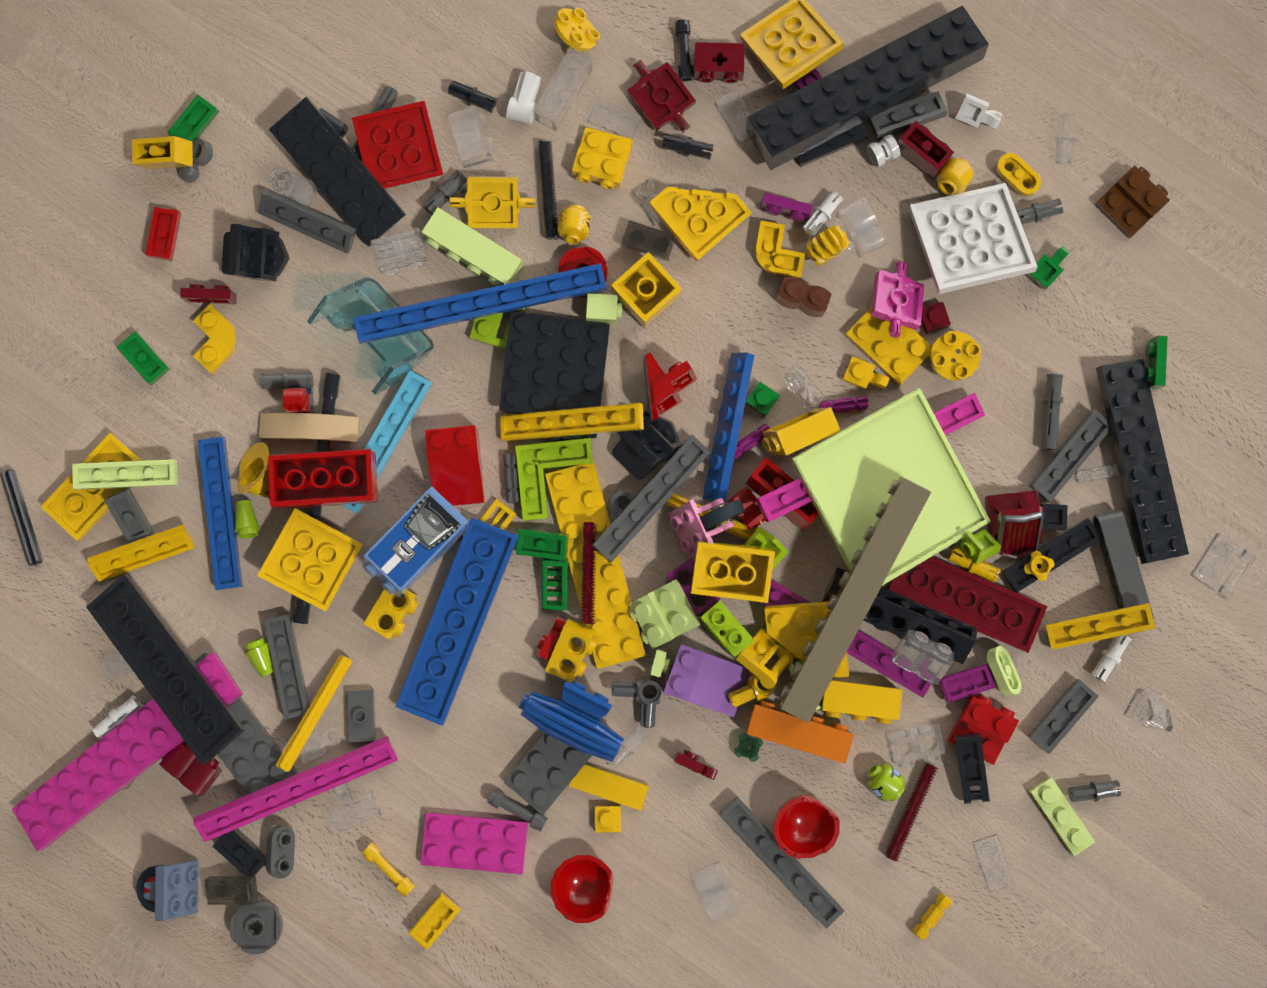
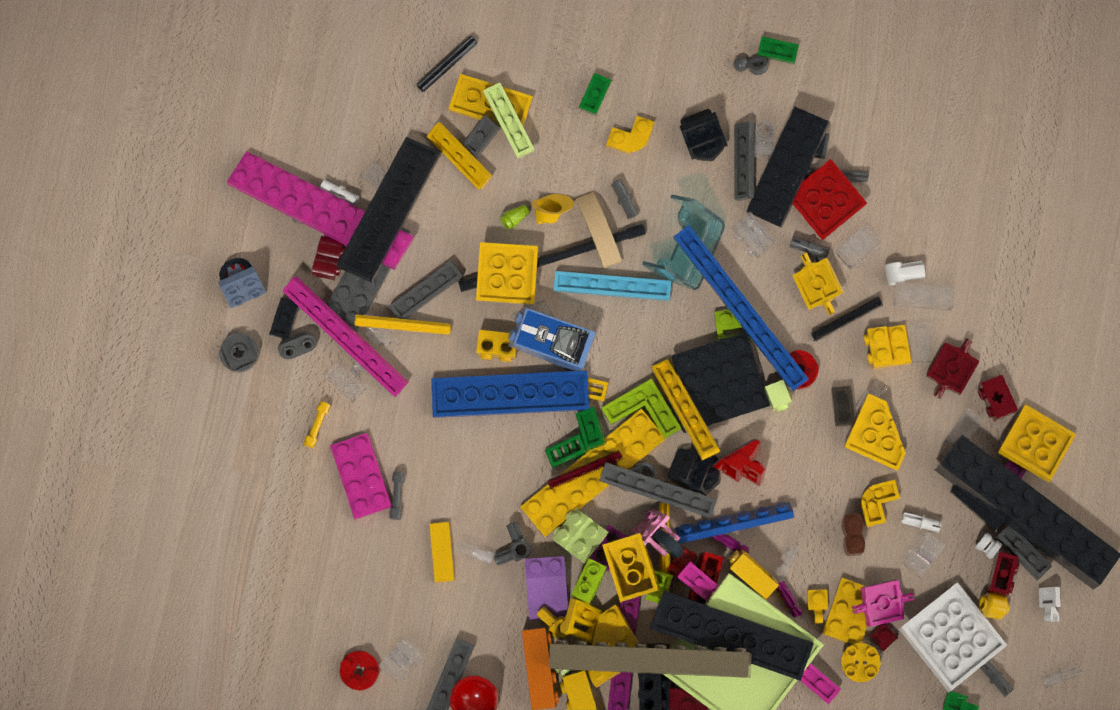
camera: 70 degrees right, 5 degrees down
(162, 152) = (744, 40): yellow brick -> none
(163, 233) = (688, 66): red plate -> none
(199, 294) = (657, 111): dark red plate -> none
(220, 513) = (511, 196): blue plate -> none
(231, 890) = (256, 324): clear smoke plate -> none
(259, 656) = (424, 269): lime cone -> none
(298, 400) = (614, 214): red leg -> none
(322, 479) = (566, 256): red brick -> none
(361, 716) = (414, 358): dark grey plate -> none
(434, 921) = (295, 472): yellow plate -> none
(456, 464) = (619, 343): red slope -> none
(471, 248) = (778, 284): yellowish green brick -> none
(472, 96) = (889, 234): black axle -> none
(511, 478) = (627, 386): dark grey axle -> none
(546, 772) = (444, 506): dark grey plate -> none
(548, 643) = (522, 464): red plate -> none
(569, 650) = (524, 479): yellow brick -> none
(574, 224) = (829, 348): yellow head -> none
(574, 720) = (477, 505): blue plate -> none
(575, 29) = (971, 285): yellow plate -> none
(582, 888) = (364, 563): red cylinder -> none
(607, 818) = (418, 561): yellow plate -> none
(646, 289) = (805, 420): yellow brick -> none
(660, 663) = (543, 549): yellowish green plate -> none
(682, 30) = (1009, 362): black bar -> none
(688, 146) = (925, 403): black pin -> none
(689, 760) = (484, 600): dark red plate -> none
(717, 958) = (369, 675): none -> red plate
(751, 754) = (513, 633): clear green plate -> none
(762, 399) = (766, 539): green plate -> none
(794, 209) = (911, 486): magenta plate -> none
(827, 245) = (898, 535): yellow gear -> none
(858, 494) = (717, 628): none -> black plate
(1020, 172) = (1017, 652): yellow plate -> none

